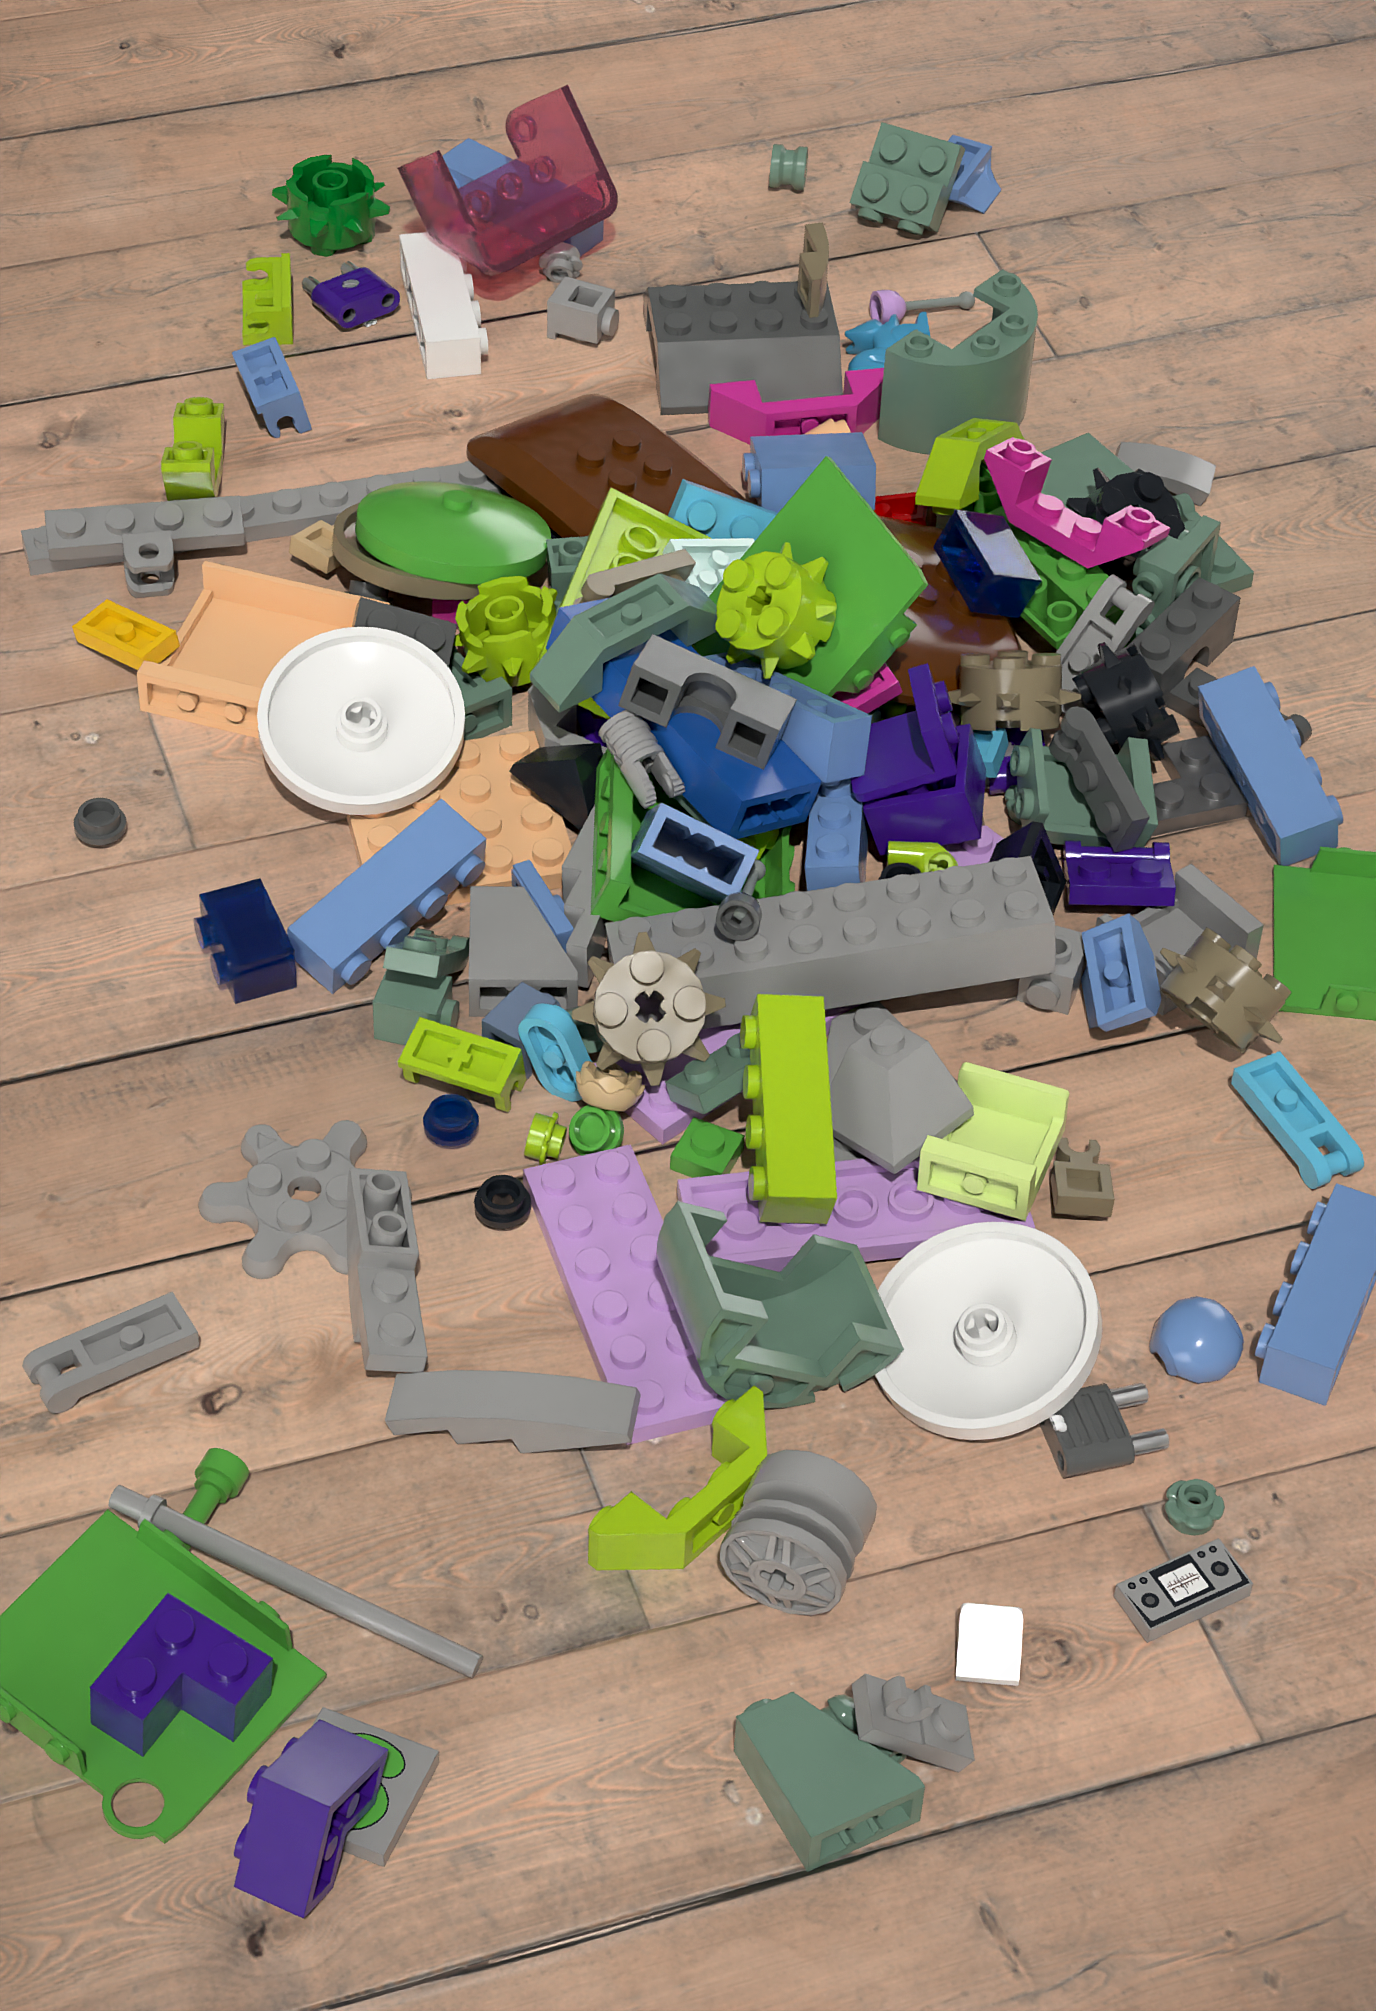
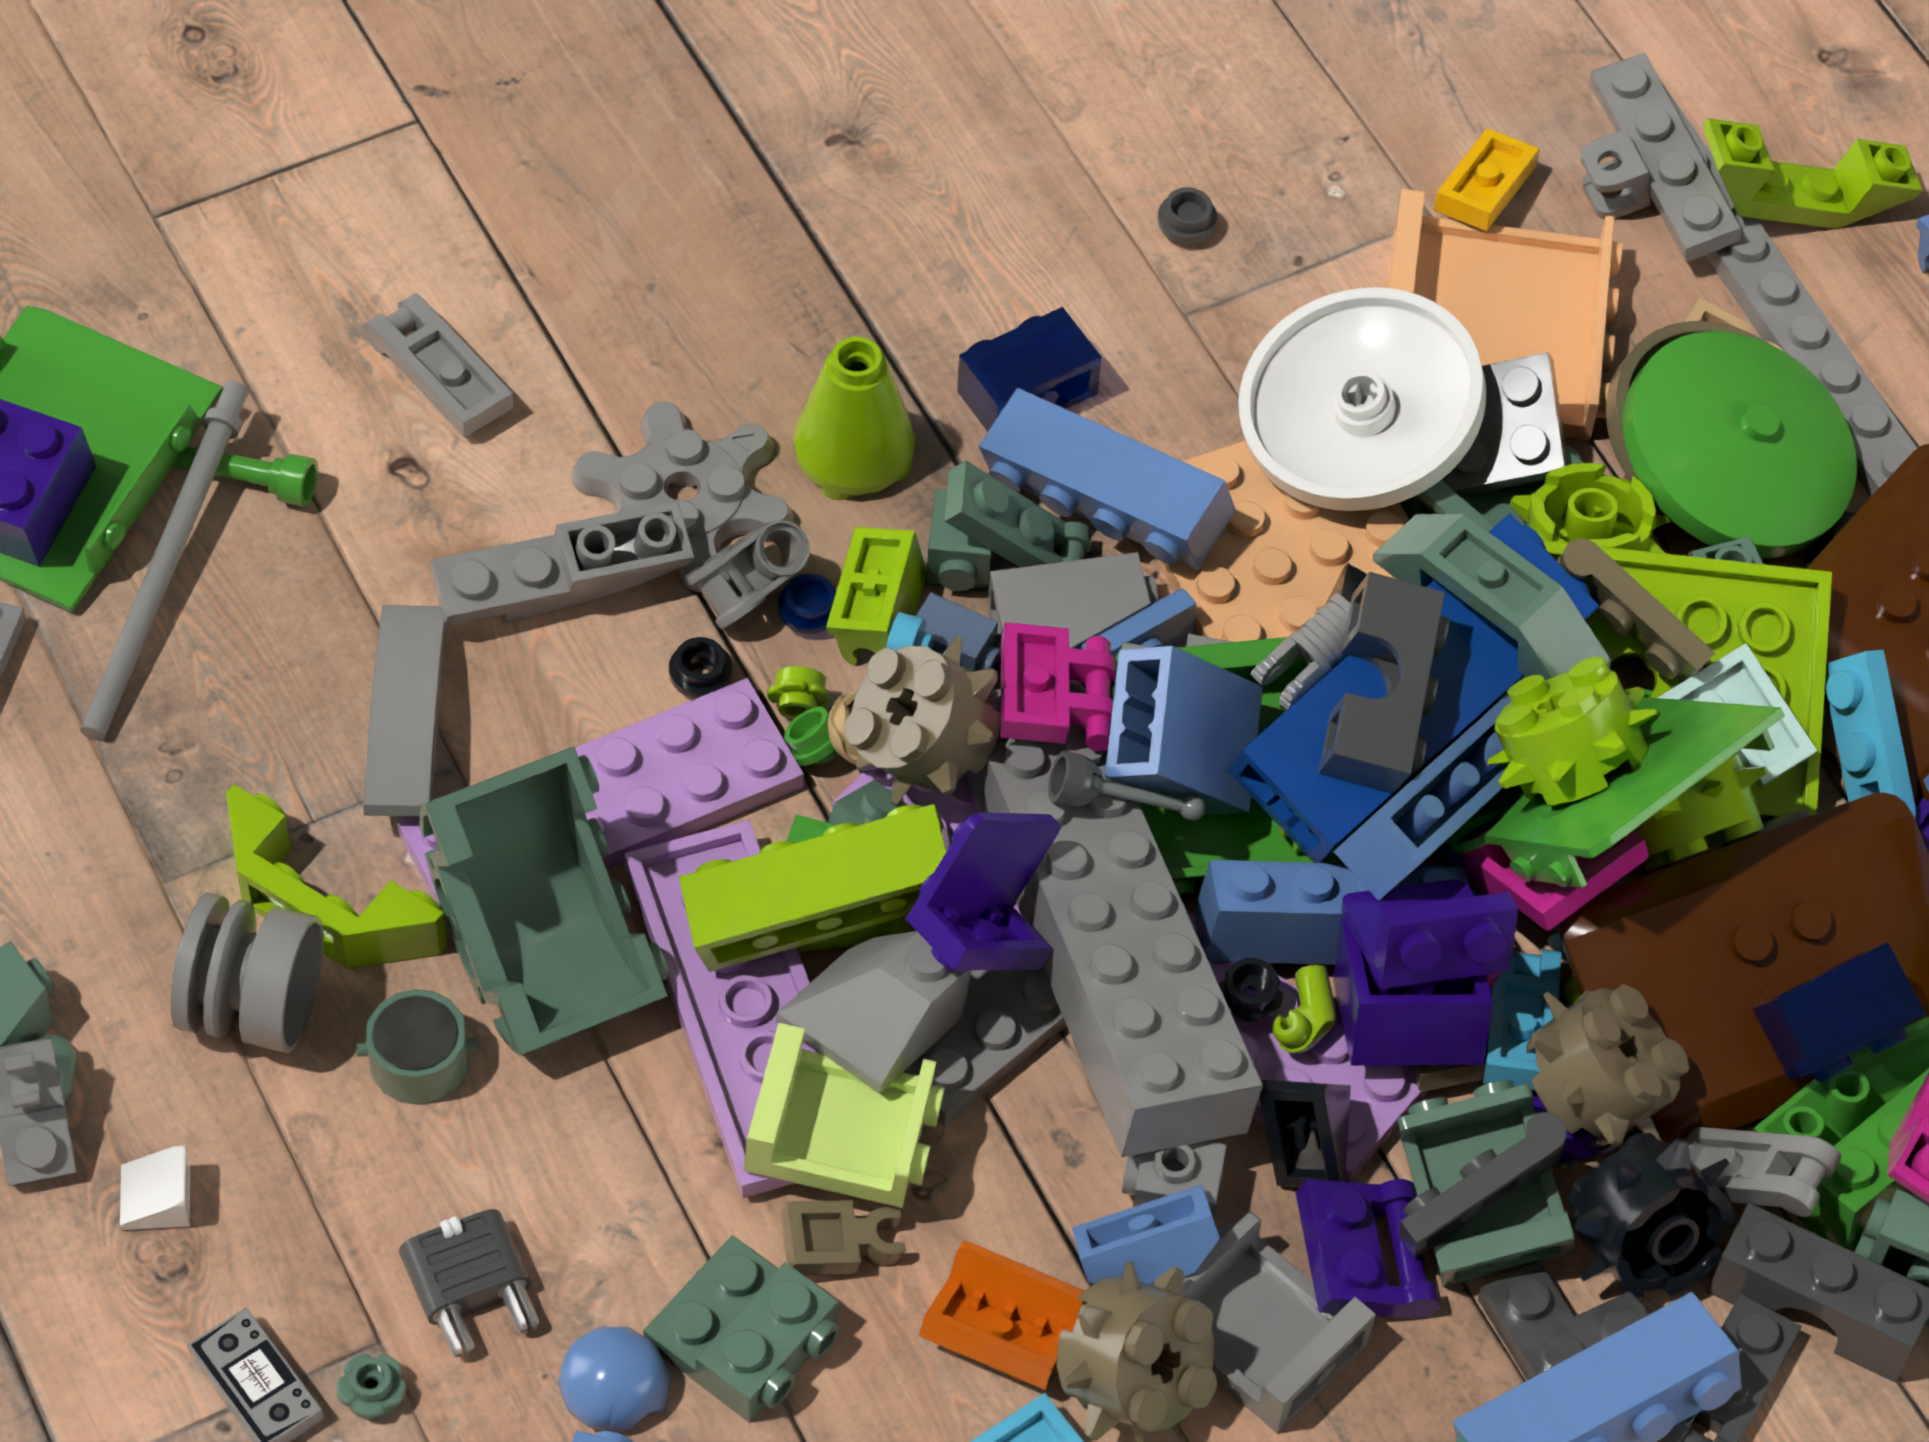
camera: 80 degrees right, 10 degrees up
(281, 1049) = (854, 424): none -> lime cone
(418, 1142) = (743, 576): none -> light grey piece
(620, 911) = (1036, 685): none -> dark pink plate
(857, 1003) = (971, 895): none -> dark purple bracket
(870, 1434) = (417, 1046): none -> piece
(990, 1330) = (565, 1138): white dish -> none
(1157, 1248) = (745, 1328): none -> sand green plate
(1164, 1085) = (1002, 1314): none -> orange bracket

